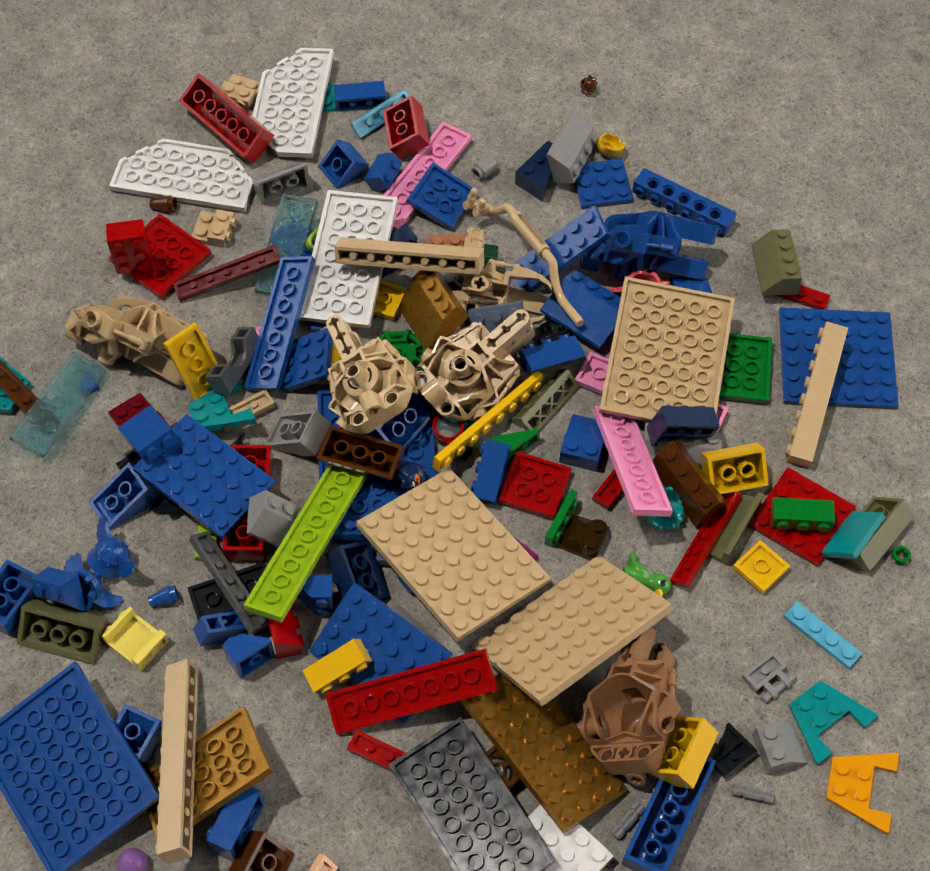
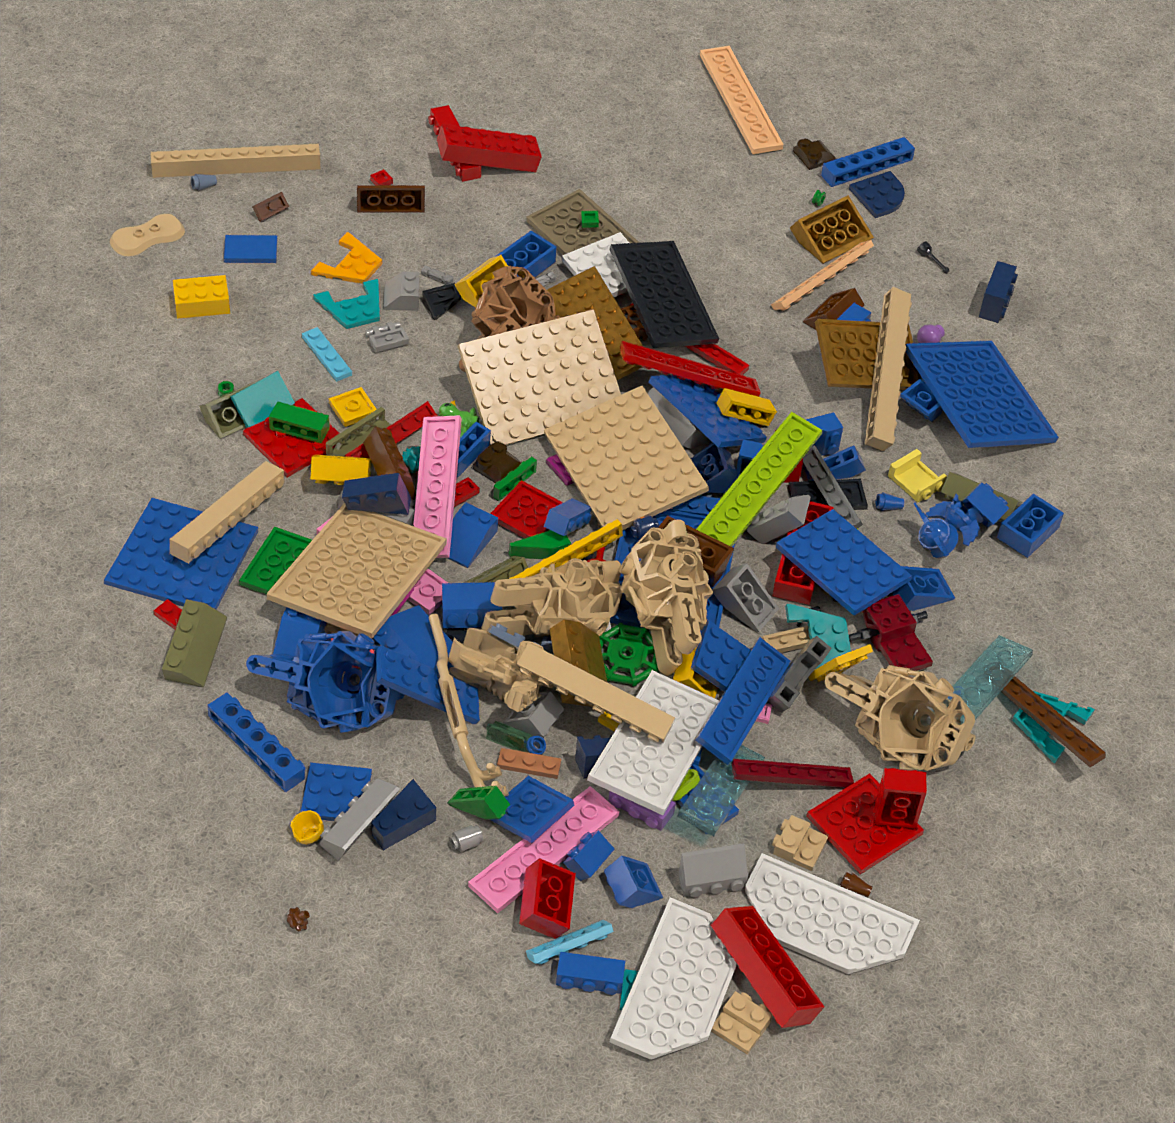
camera: 170 degrees left, 10 degrees down
(148, 434) = (894, 589): blue brick -> none
(486, 188) = (481, 801): none -> green slope
(620, 535) = (472, 444): none -> blue brick

